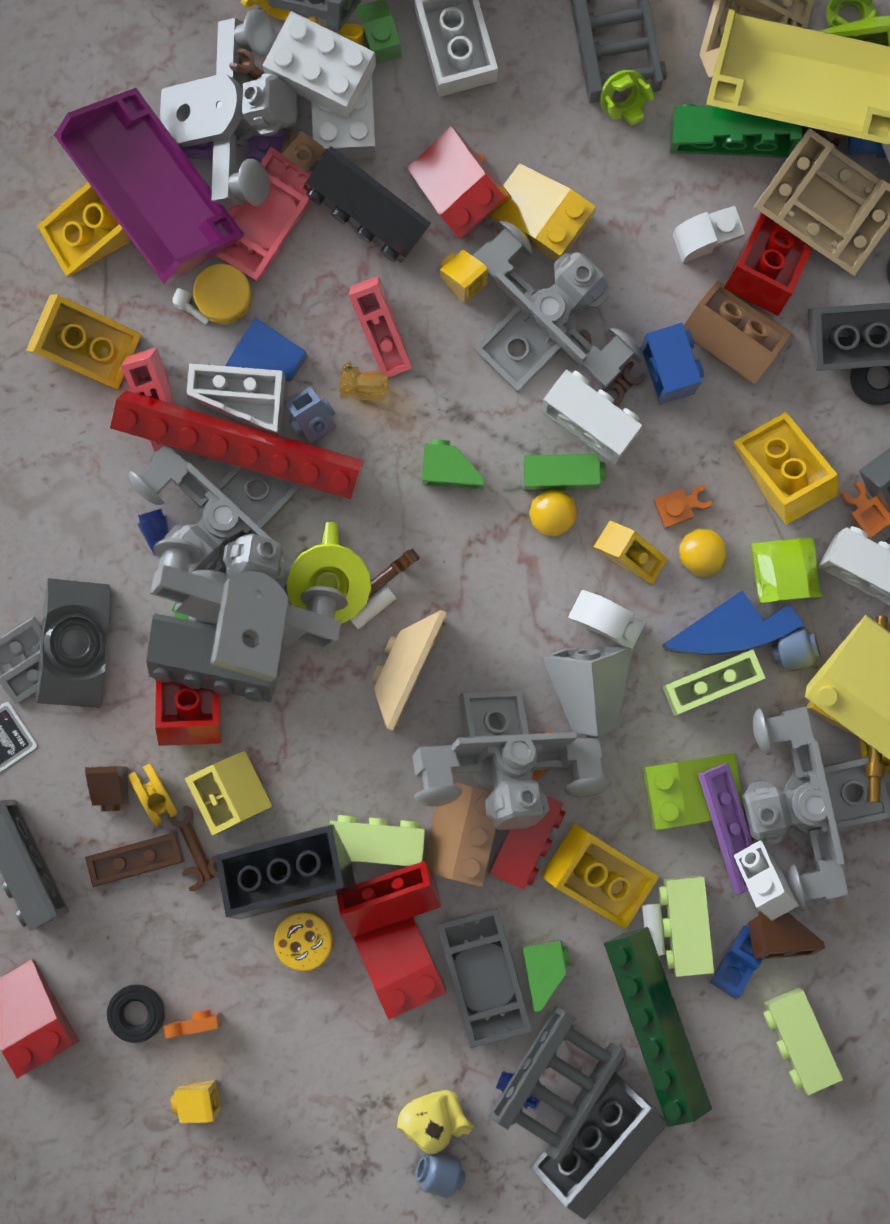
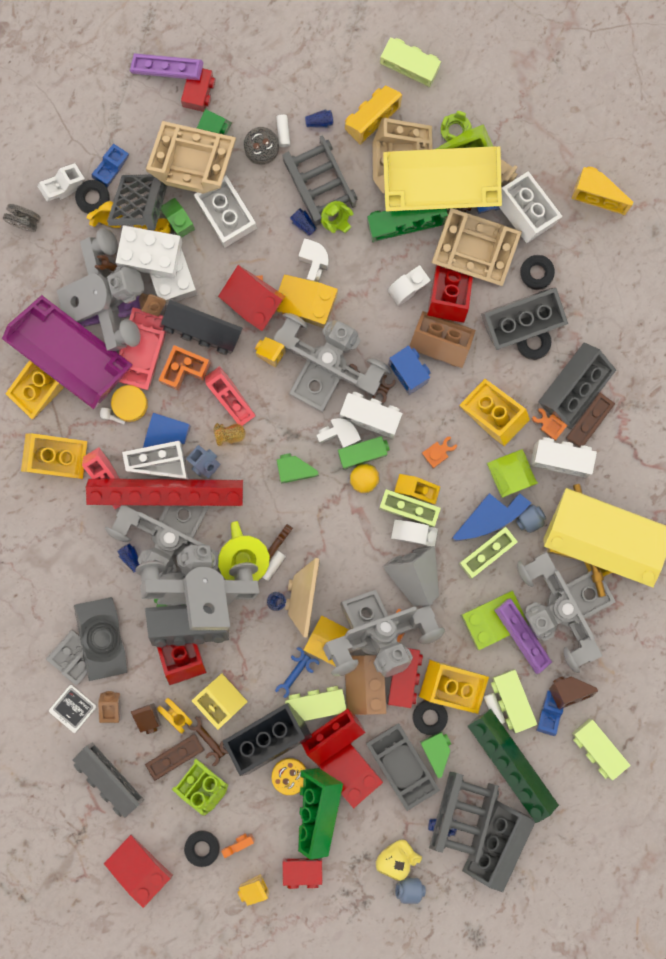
camera: 20 degrees left, 0 degrees up
(55, 753) = (109, 707): none -> medium nougat bracket
(161, 919) = (201, 788): none -> lime slope
(280, 1096) = (302, 872): none -> brick
(319, 254) = (181, 363): none -> orange brick
(332, 1010) = (319, 812): none -> green wedge
(357, 658) = (272, 601): none -> clear blue cone
(377, 769) = (304, 660): none -> blue bar
(421, 731) = (324, 631): none -> yellow slope
(540, 425) = (343, 430): none -> white brick
(544, 932) = (433, 729): none -> black tyre
(572, 90) = (303, 221): none -> clear blue cone
(576, 147) = (316, 255): none -> white brick
(610, 578) = (409, 508): none -> yellowish green brick
(703, 553) = (460, 476): yellow hair -> none
(766, 881) = (552, 661): white slope -> none

